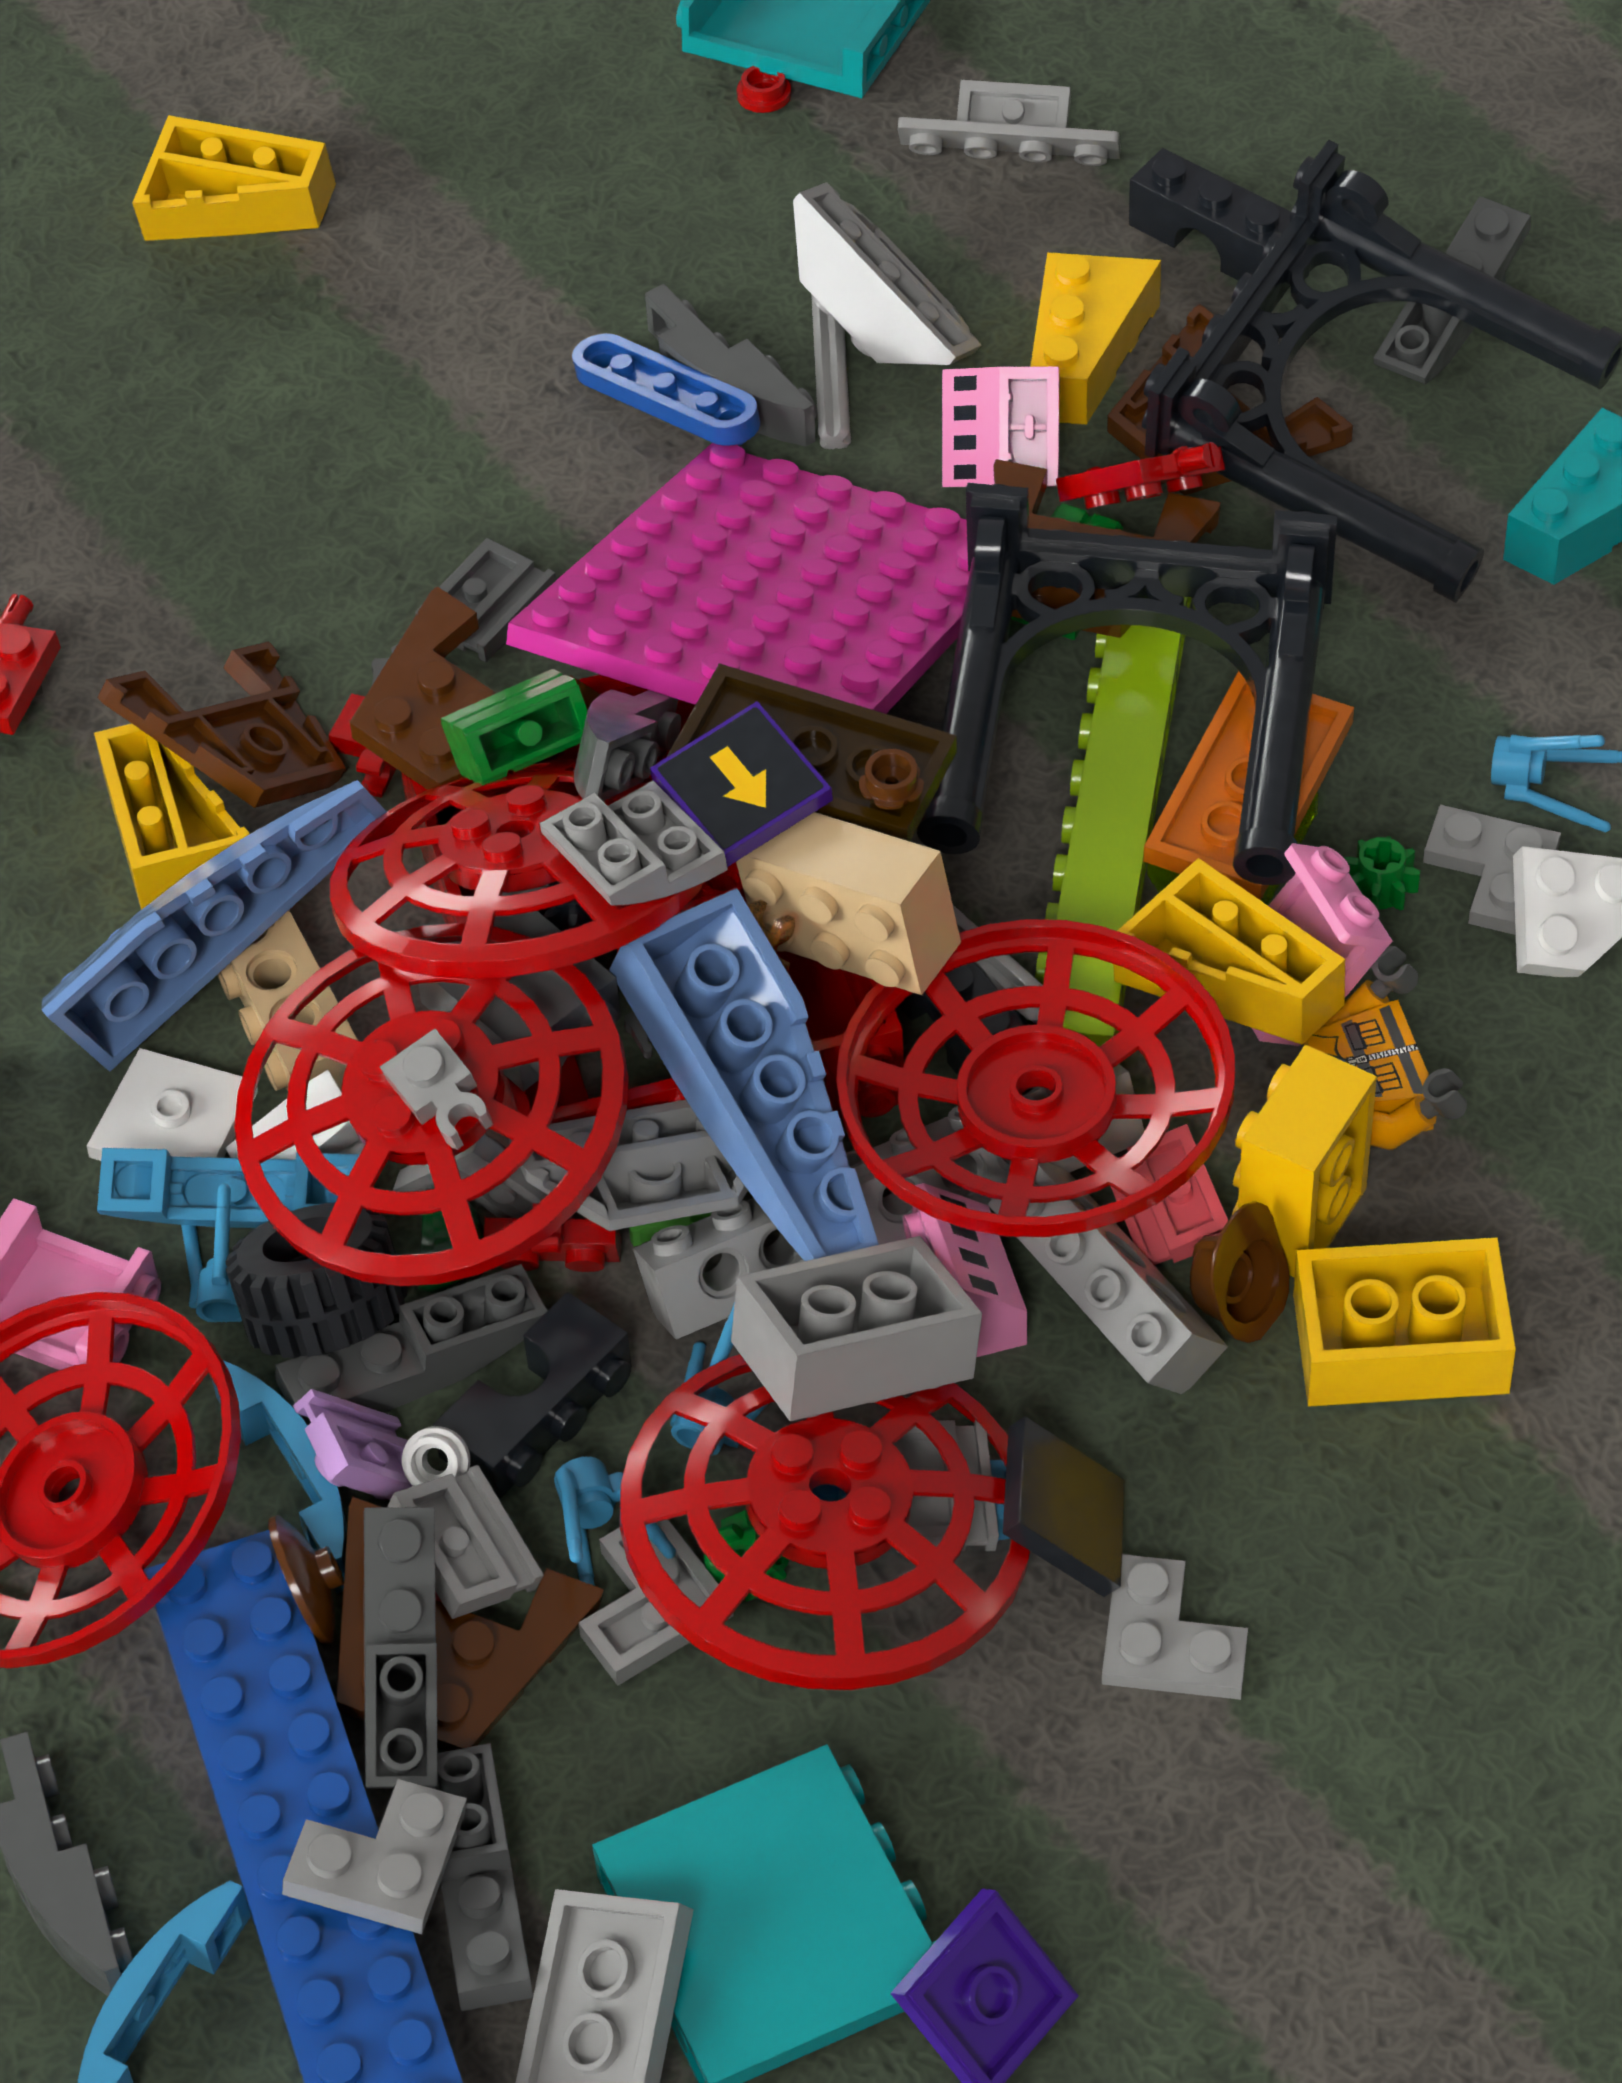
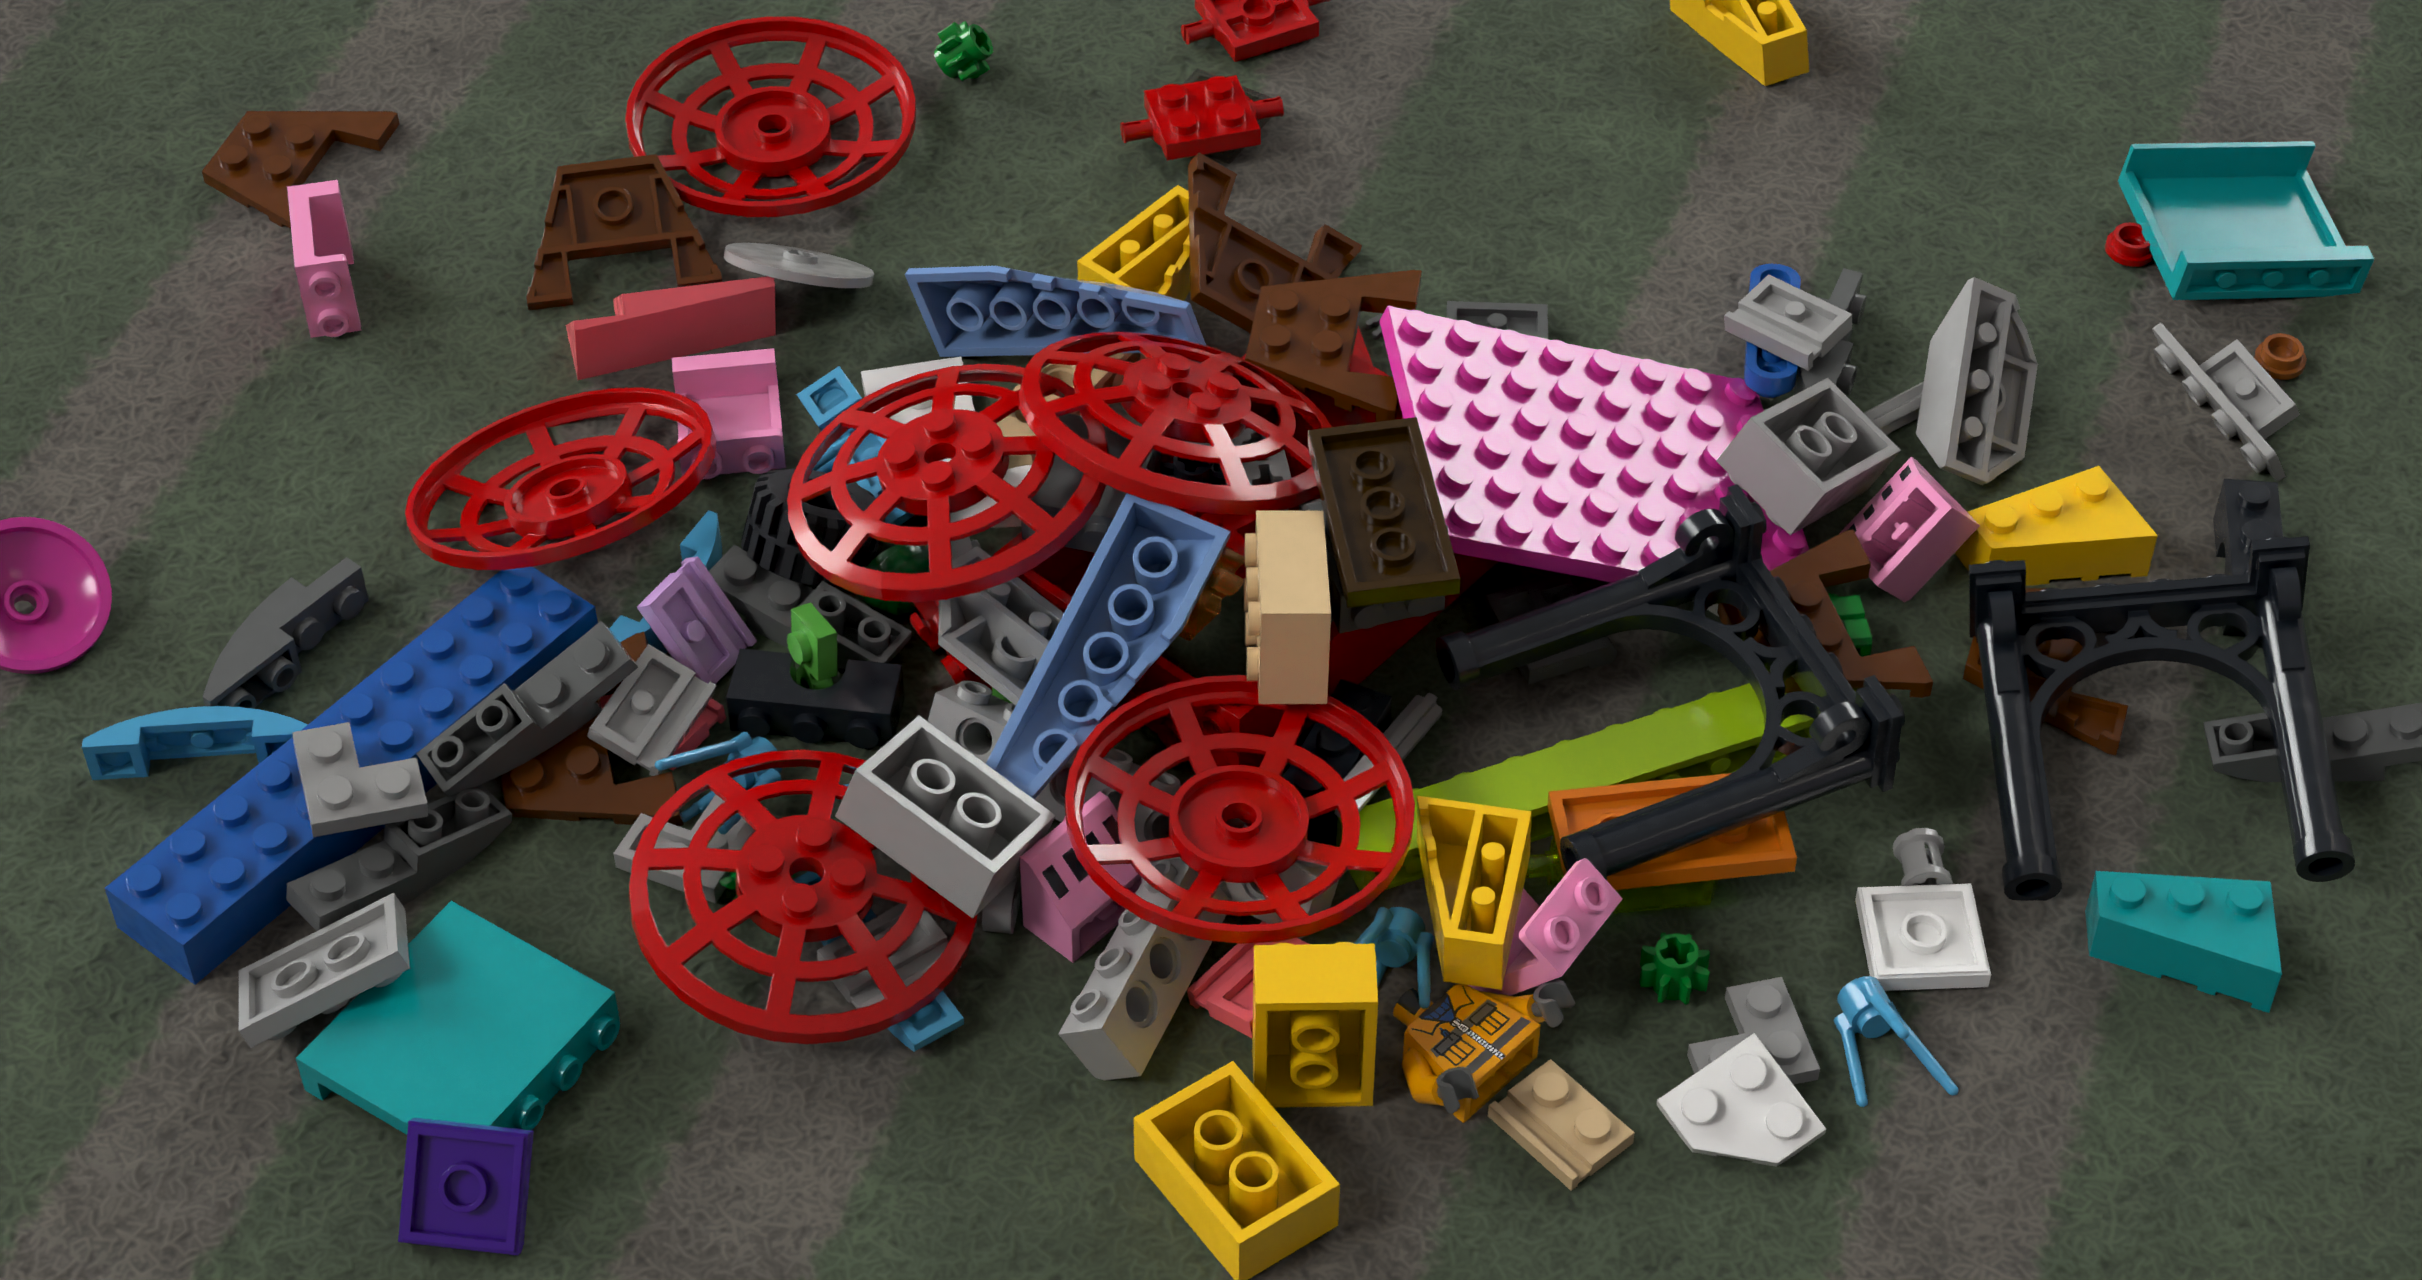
camera: 55 degrees right, 5 degrees down
(309, 1577) = (556, 626): reddish brown dish -> none
(416, 1449) = (712, 661): white plate -> none
(436, 1084) = (926, 453): light grey plate -> none
(489, 1353) = (812, 647): none -> bright green plate
(516, 727) = (1305, 360): green brick -> none
(623, 741) = (1303, 398): dark grey slope -> none
(635, 846) = (1200, 449): light grey slope -> none
(696, 365) = (1788, 322): none -> light grey plate
(743, 782) = (1307, 478): black tile -> none
(877, 443) = (1807, 456): none -> light grey brick
(891, 779) = (1374, 554): reddish brown plate -> none
(985, 63) = (2281, 356): none -> dark orange plate
(1064, 1507) = (912, 1035): black tile -> none
(1142, 477) = (1911, 616): red plate -> none
(1158, 1651) = (850, 1163): light grey plate -> none
(1193, 1063) = (1397, 939): none -> dark azure plant
(1242, 1274) = (1197, 1035): reddish brown piece -> none
(1387, 637) = (1920, 863): none -> light grey bush
(1464, 682) = (1923, 936): none -> white plate
(1493, 1051) = (1561, 1124): none -> tan plate

